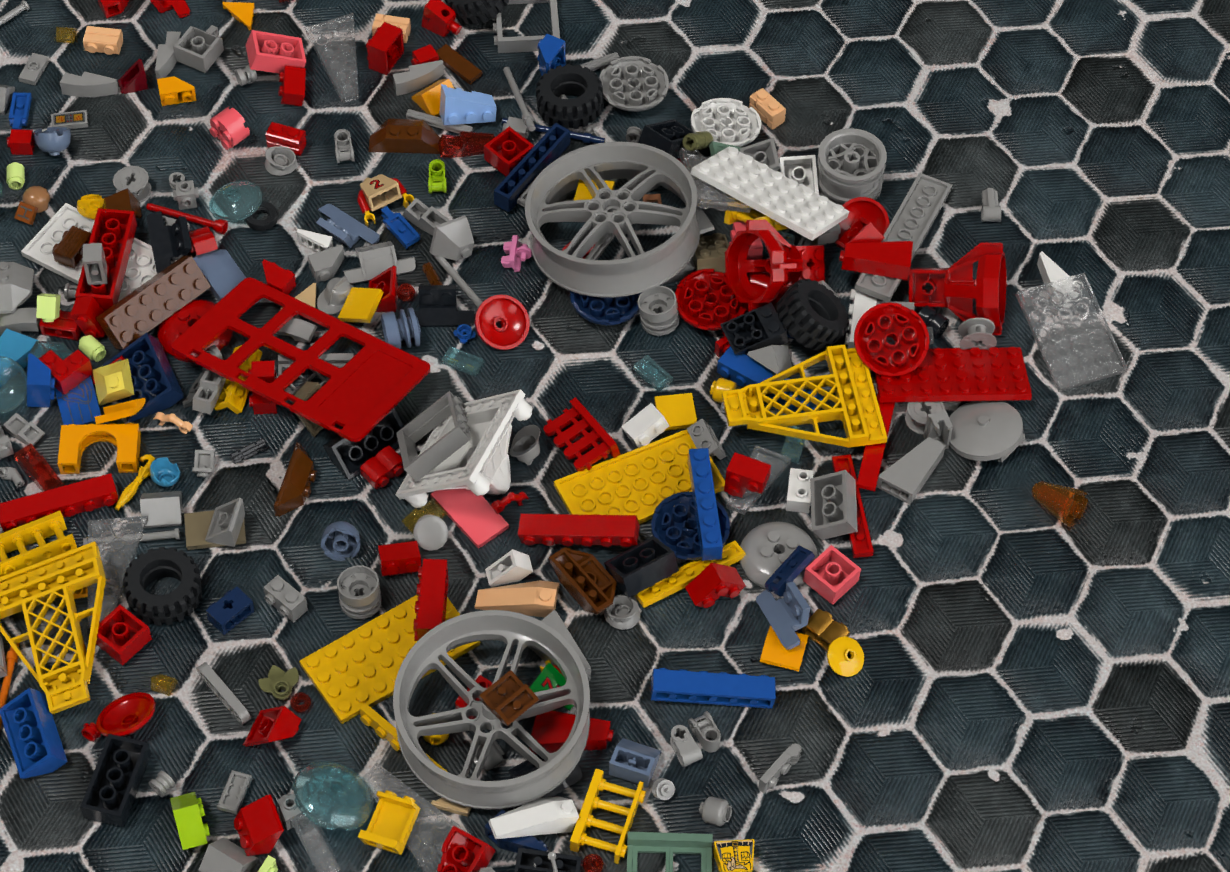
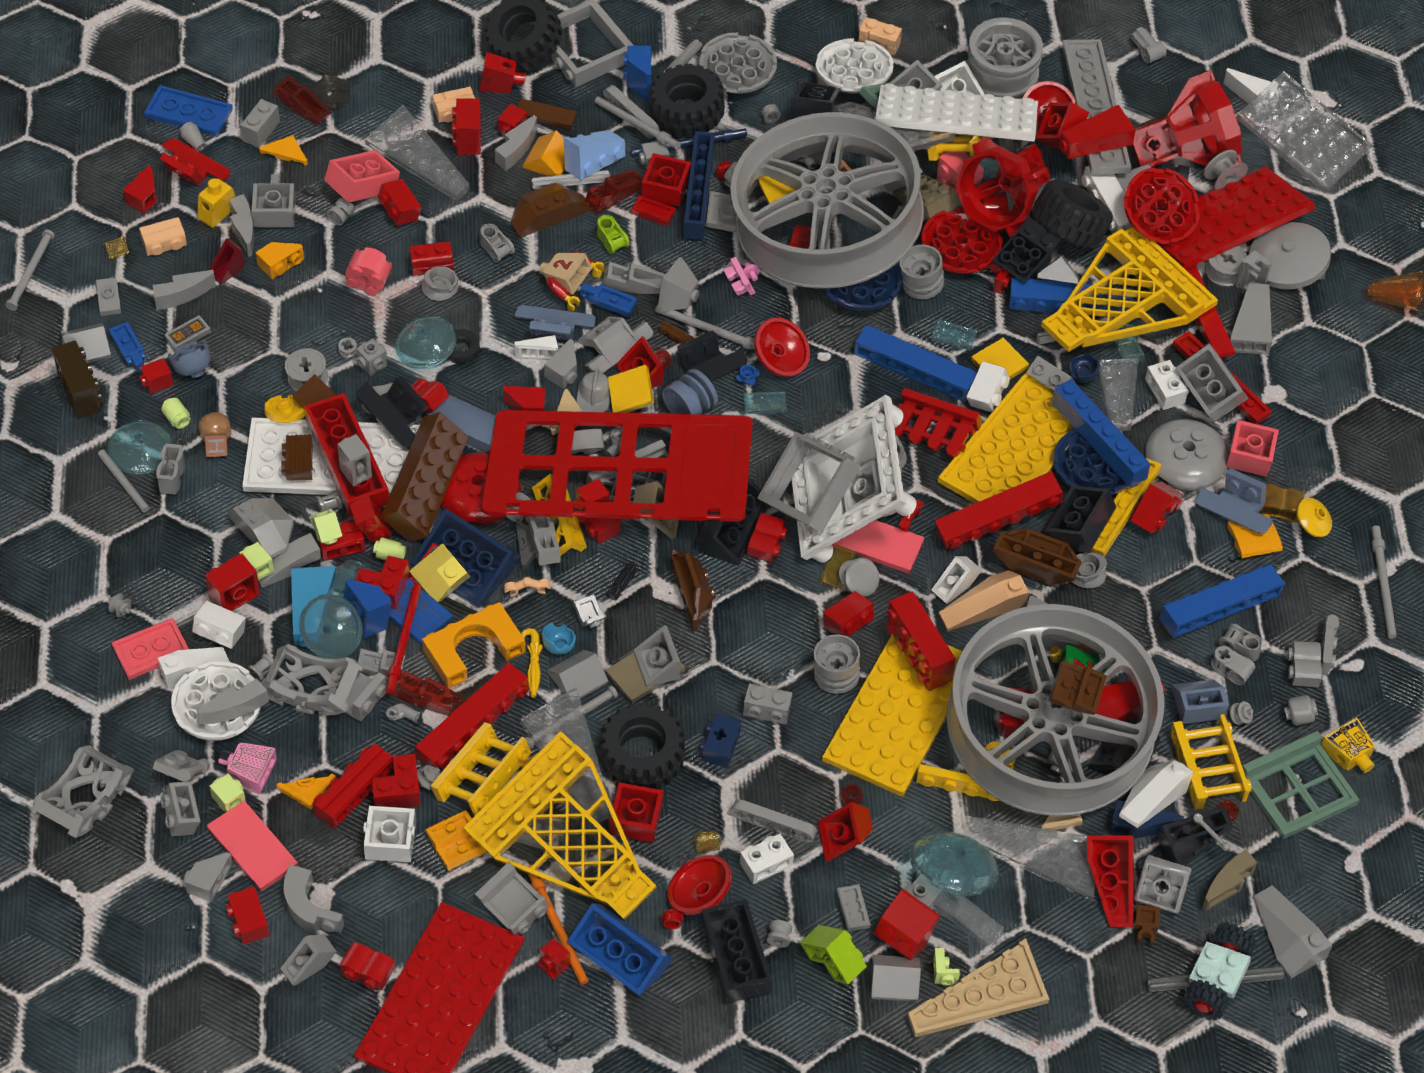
camera: 30 degrees left, 0 degrees up
(24, 440) = (395, 670): none -> red bar
(120, 410) = (472, 597): light orange slope -> none
(155, 28) = (214, 202): none -> yellow torso
(195, 719) = (766, 858): none -> white brick
(220, 226) = (426, 373): red piece -> none
(279, 680) = (814, 785): olive plate -> none
(340, 540) = (781, 623): sand blue cylinder -> none
(391, 822) = (1023, 862): yellow panel -> none
(486, 173) = (653, 210): none -> red tile
(523, 86) = (617, 98): none -> light grey beam
(601, 379) = (914, 363): none -> blue brick
(697, 140) = (847, 92): olive piece -> none
(719, 386) = (1030, 322): yellow head -> none
(740, 444) = (1084, 368): none -> dark blue hair
(746, 474) = (1120, 387): red brick -> none
(747, 774) = (1305, 663): none -> light grey brick
(789, 570) = (1216, 460): dark blue plate -> none
(885, 707) = (1378, 547): none -> light grey bar

